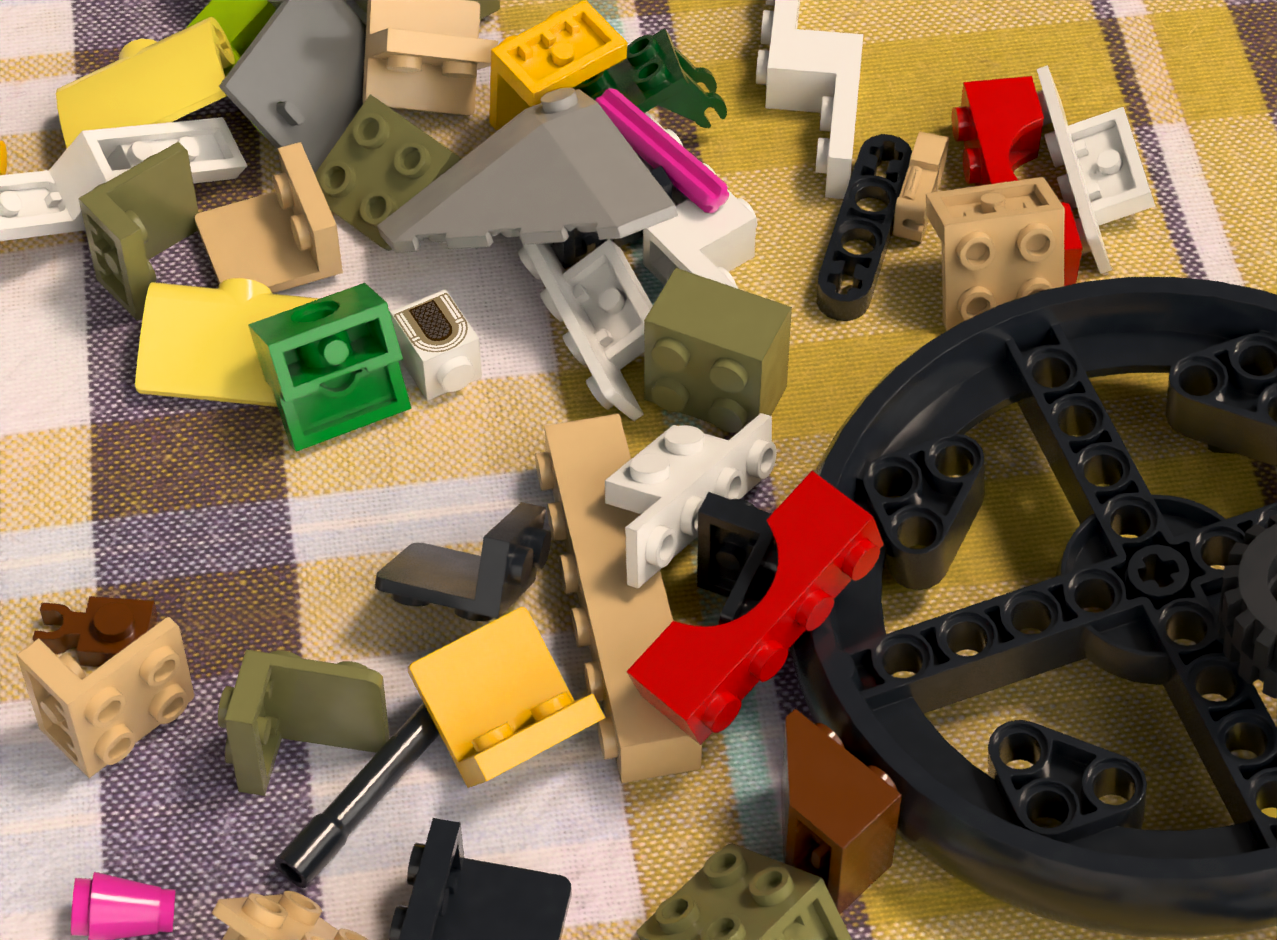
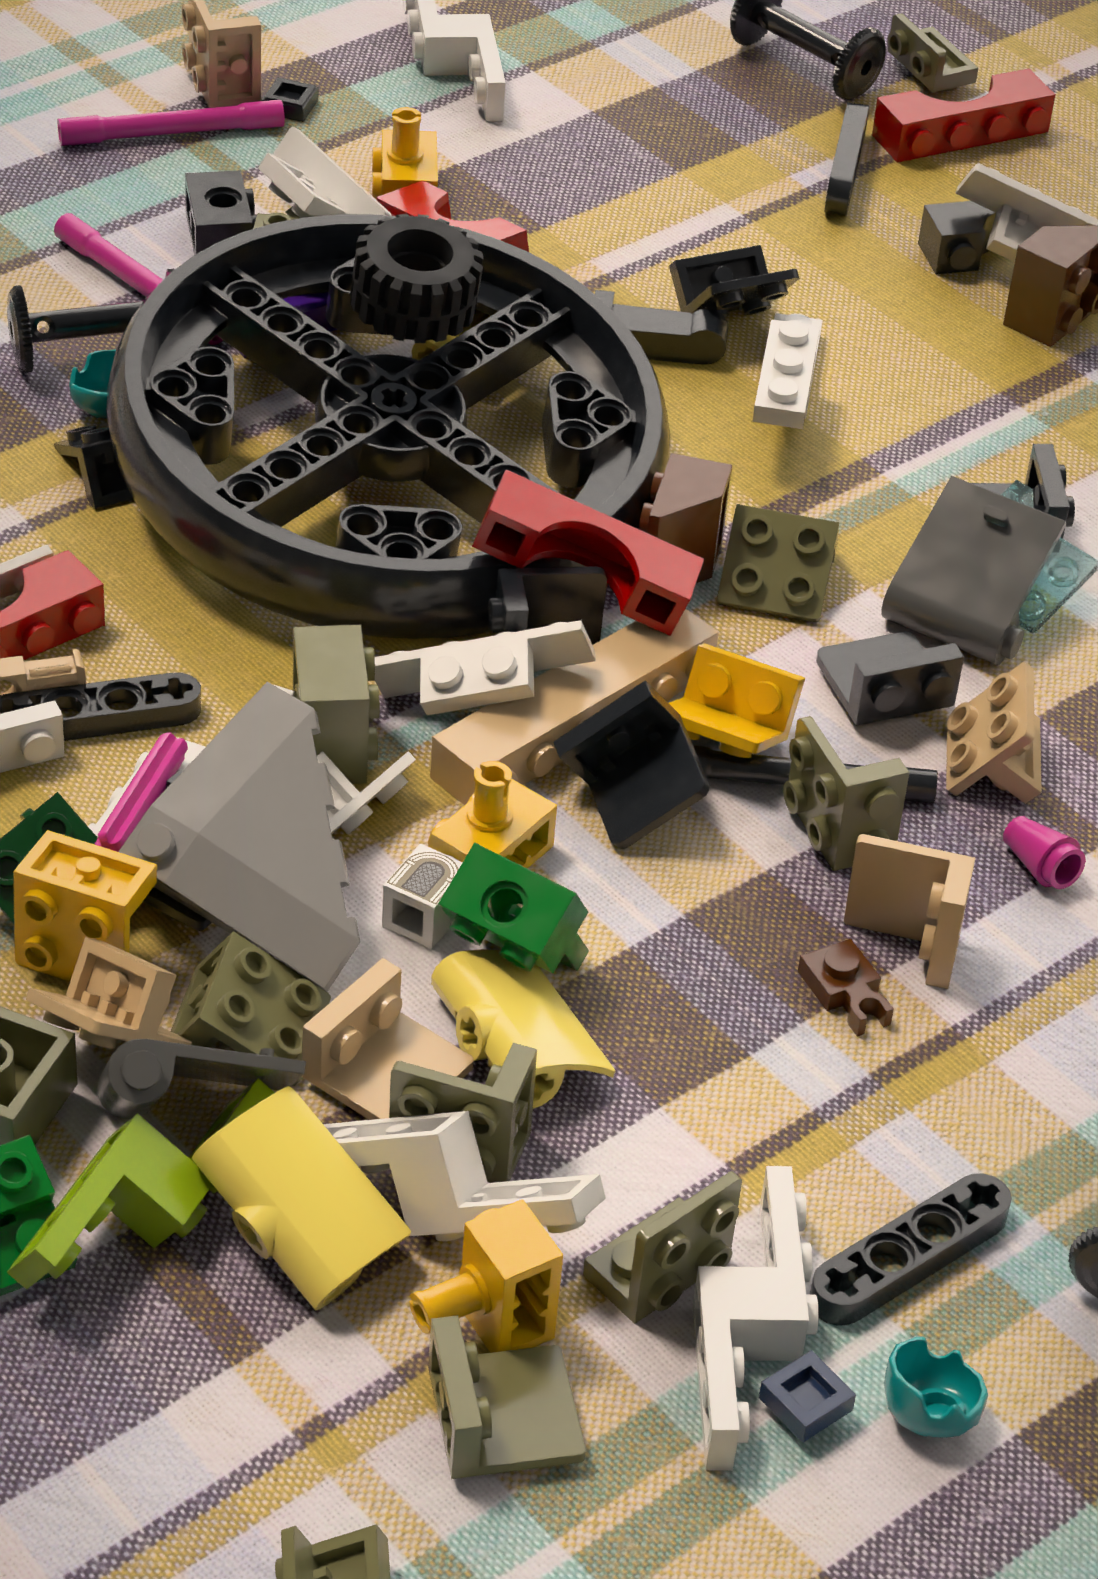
camera: 125 degrees left, 10 degrees down
(475, 426) = (500, 818): none -> yellow brick
(997, 244) = (96, 586): tan bracket -> none

